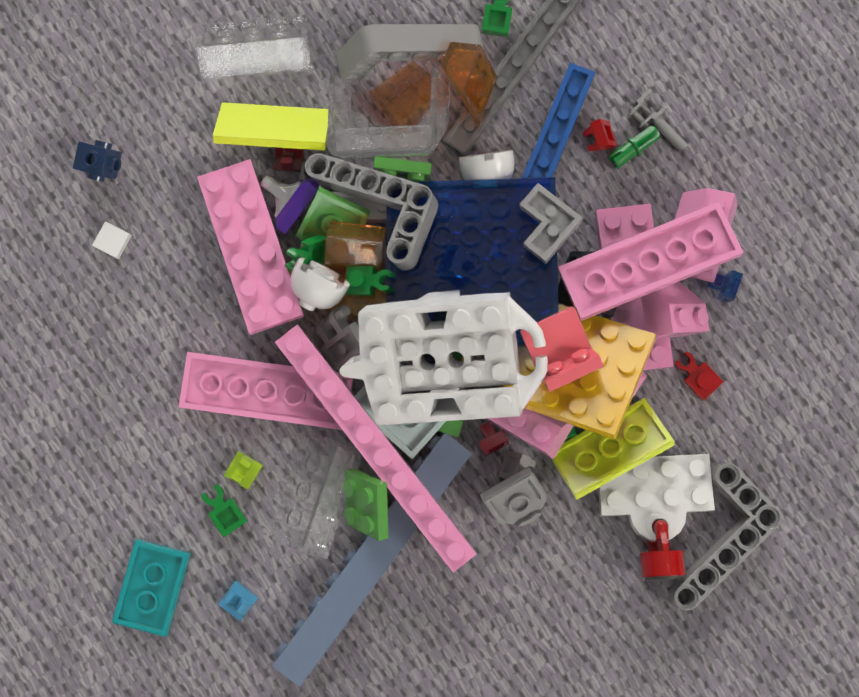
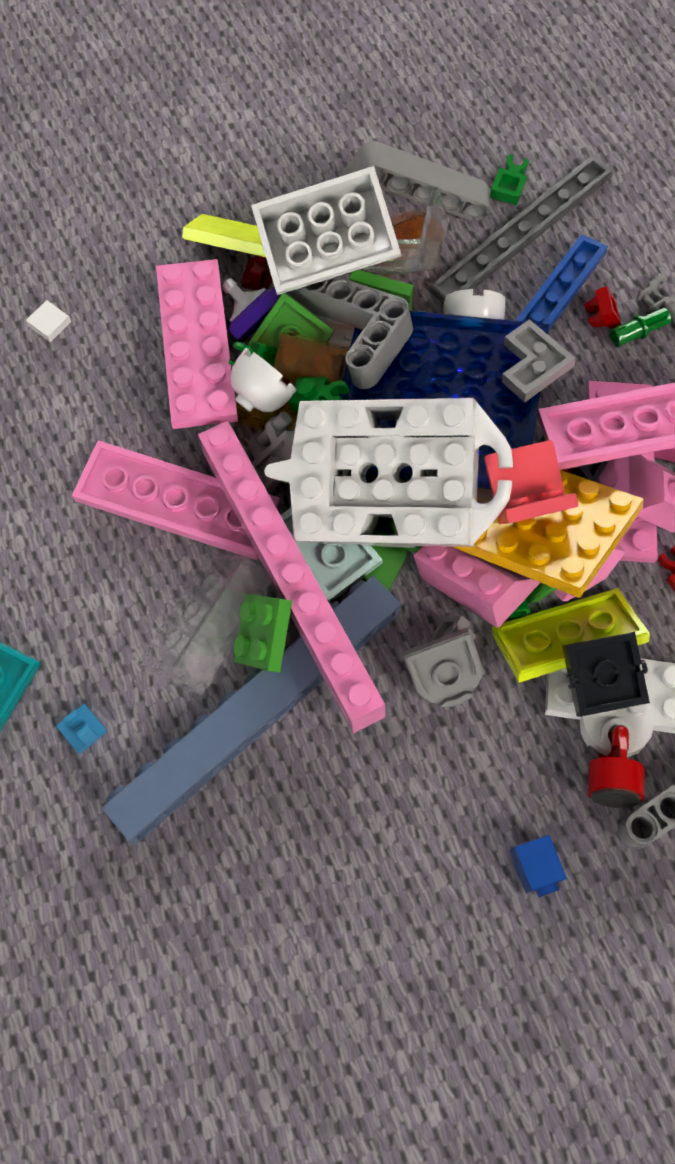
camera: 15 degrees right, 15 degrees down
(97, 160) = (55, 238): dark blue brick -> none
(227, 514) = (94, 623): green plate -> none
(243, 470) = (127, 581): lime tile -> none
(253, 47) = (246, 169): clear slope -> none
(345, 131) = (326, 230): none -> white slope
(470, 76) = (471, 220): clear orange slope -> none
(492, 440) = (427, 599): dark red tile -> none
(612, 639) = (538, 866): none -> blue brick
(643, 484) = (606, 674): none -> black plate

